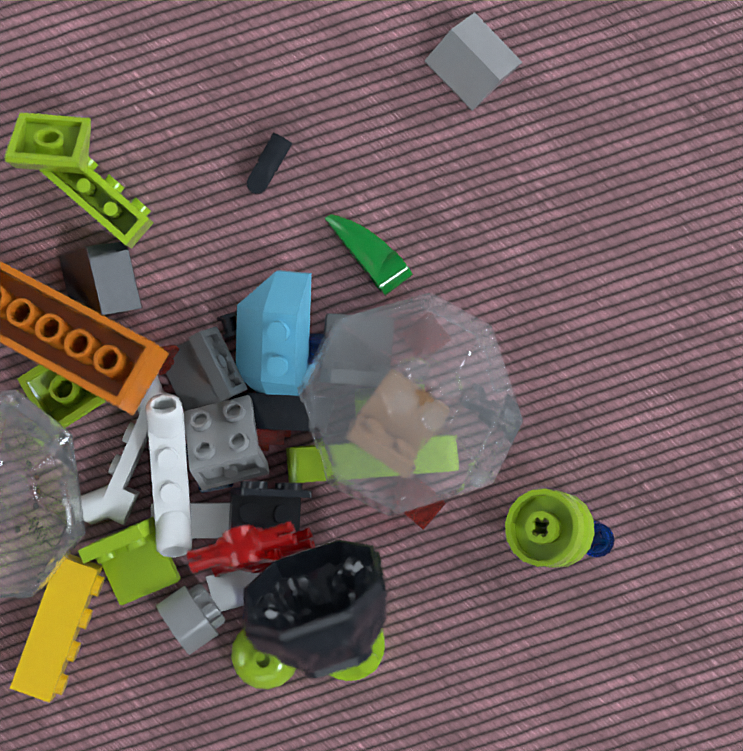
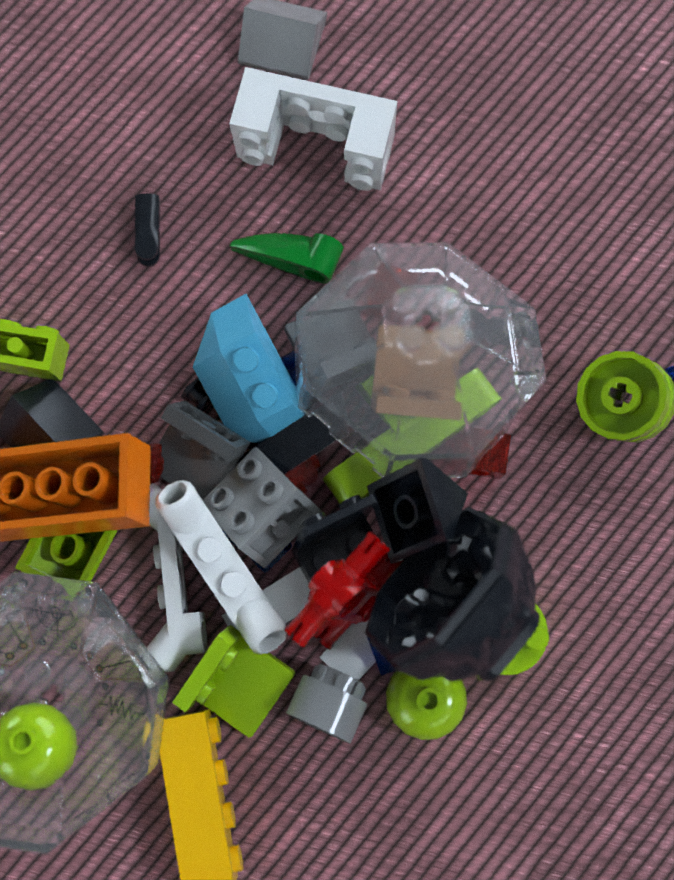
camera: 30 degrees left, 10 degrees down
(336, 522) = (416, 508): none -> black slope
(418, 123) = (274, 100): none -> white plate

